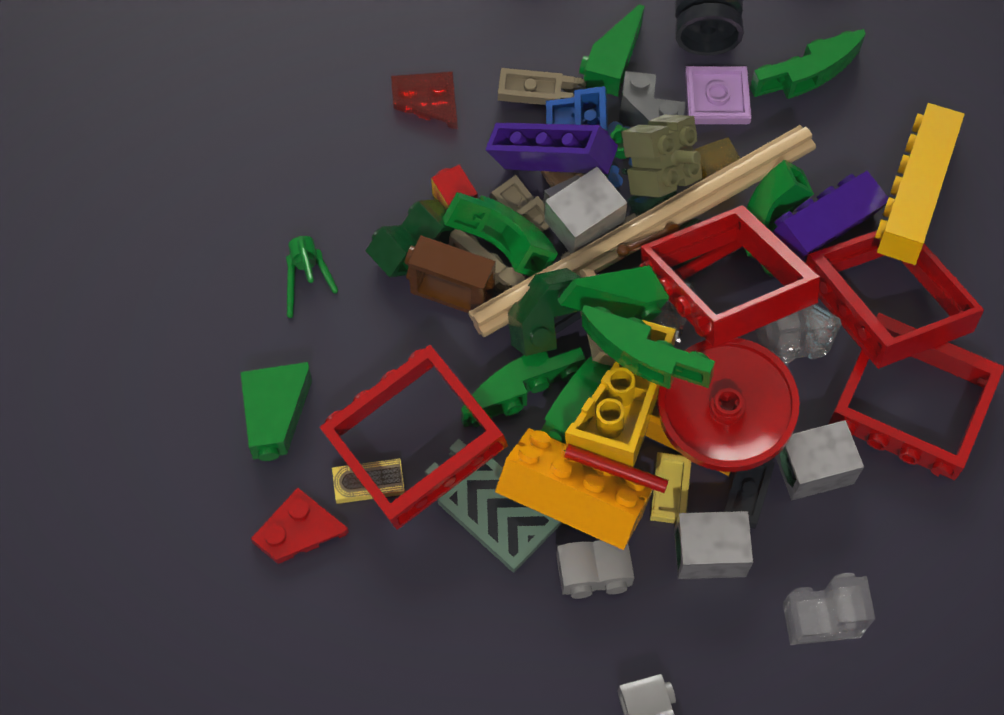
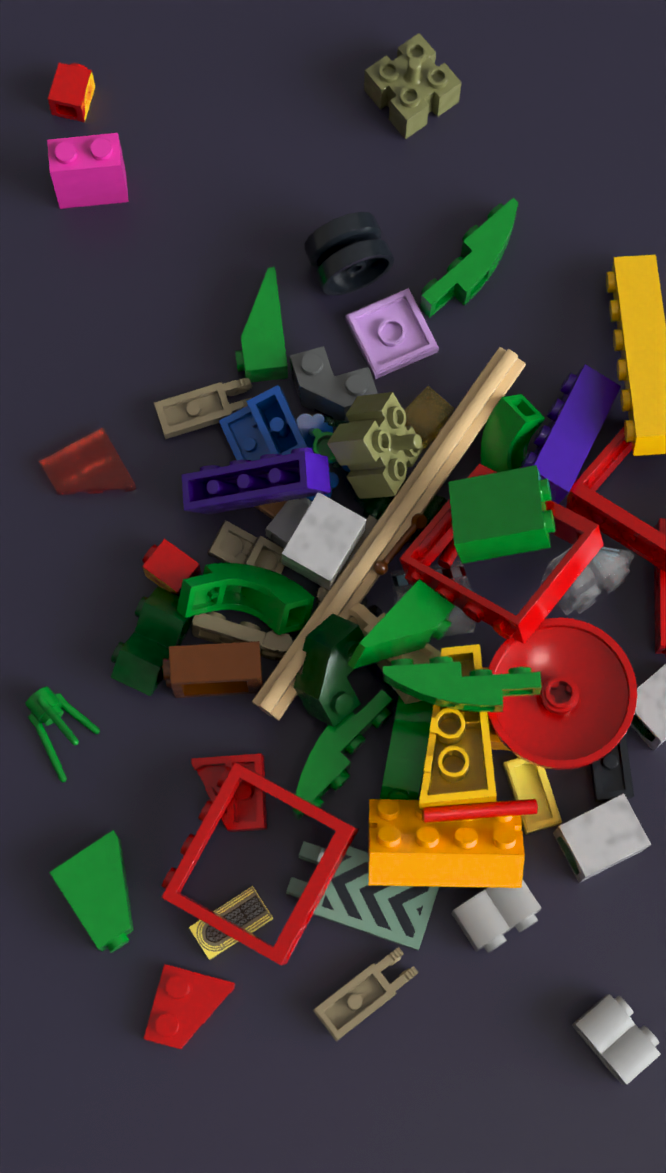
camera: 25 degrees left, 10 degrees up
(428, 391) = (248, 804): none -> red wing
(449, 585) = (361, 996): none -> dark tan hinge
(740, 238) = (500, 514): none -> green brick

